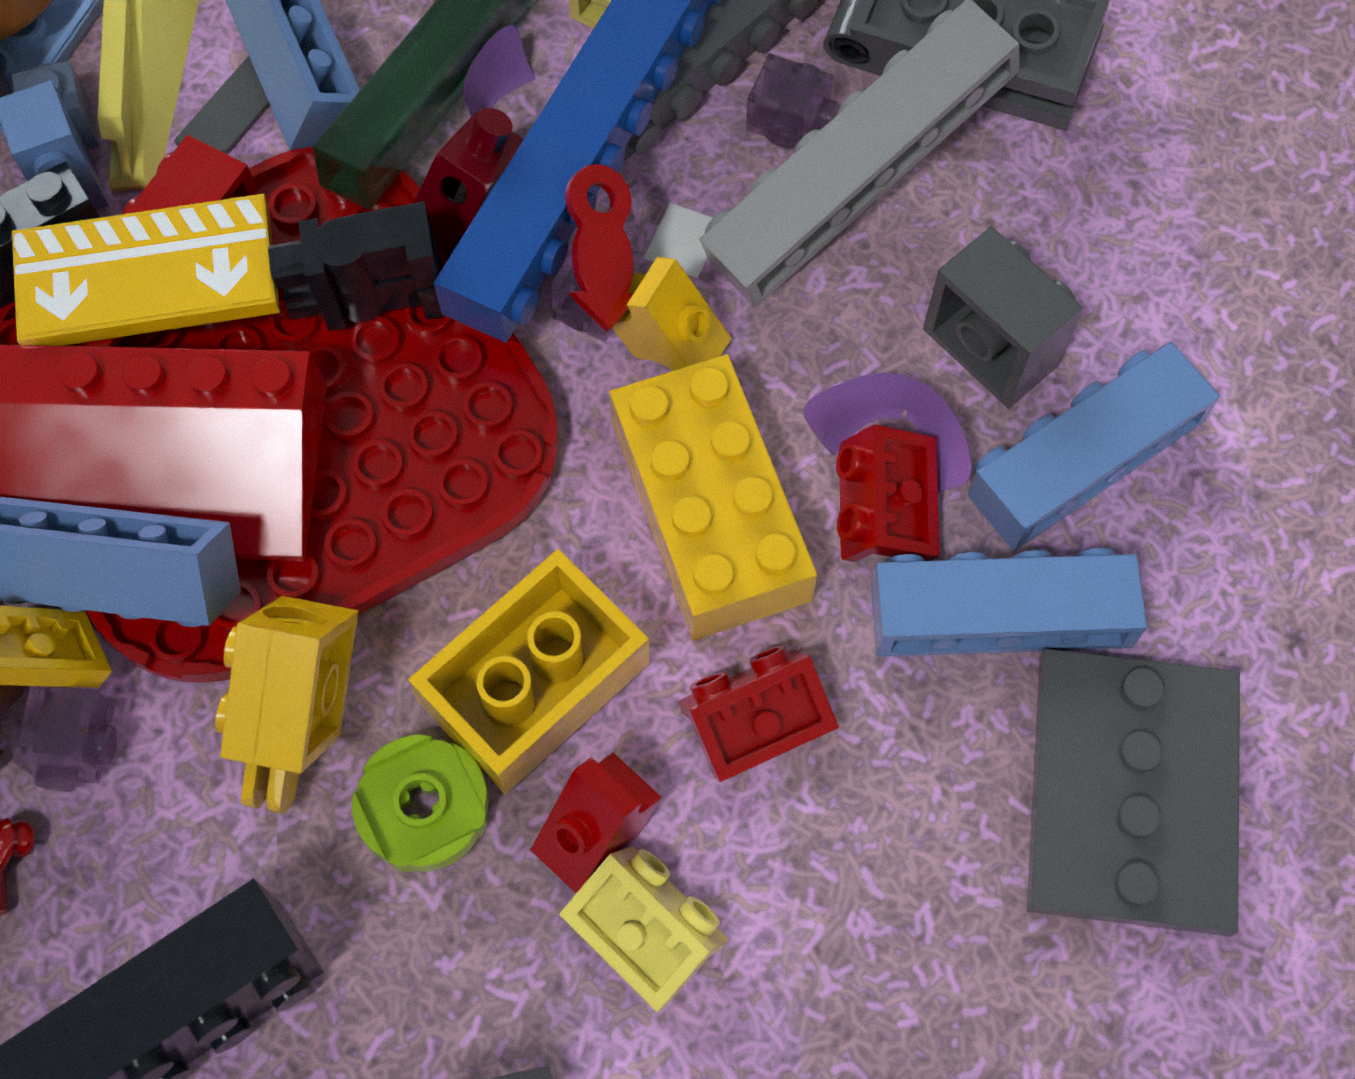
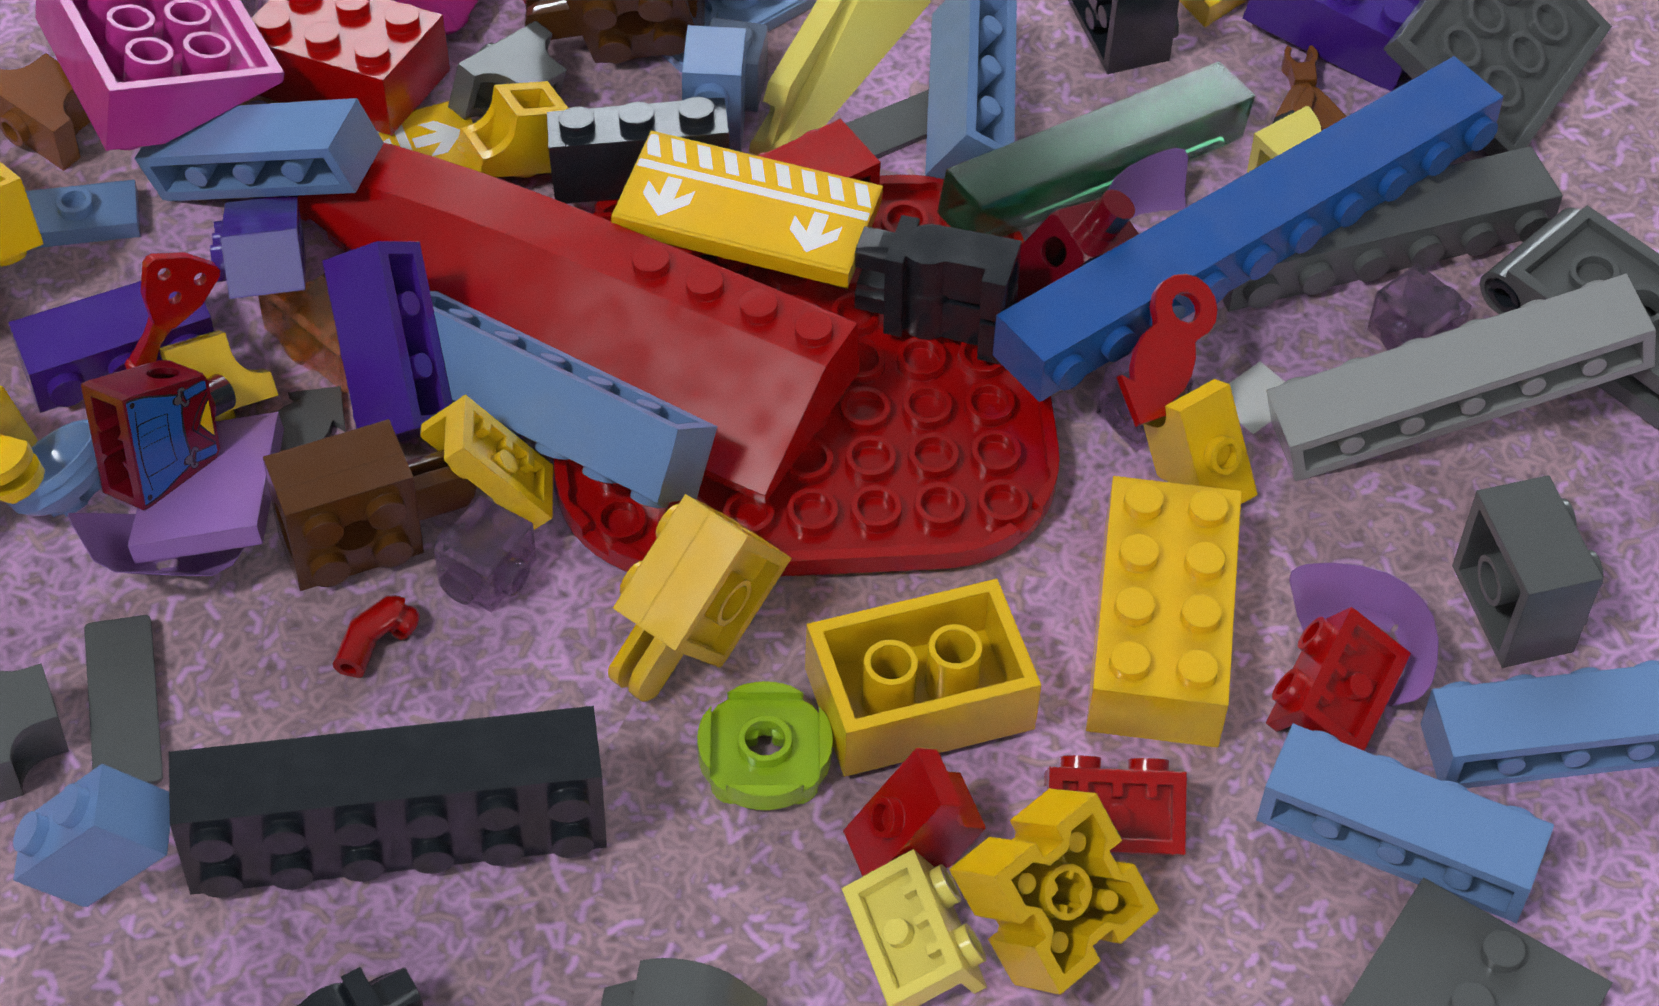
camera: 25 degrees right, 15 degrees down
(748, 838) = (1054, 890): none -> yellow brick

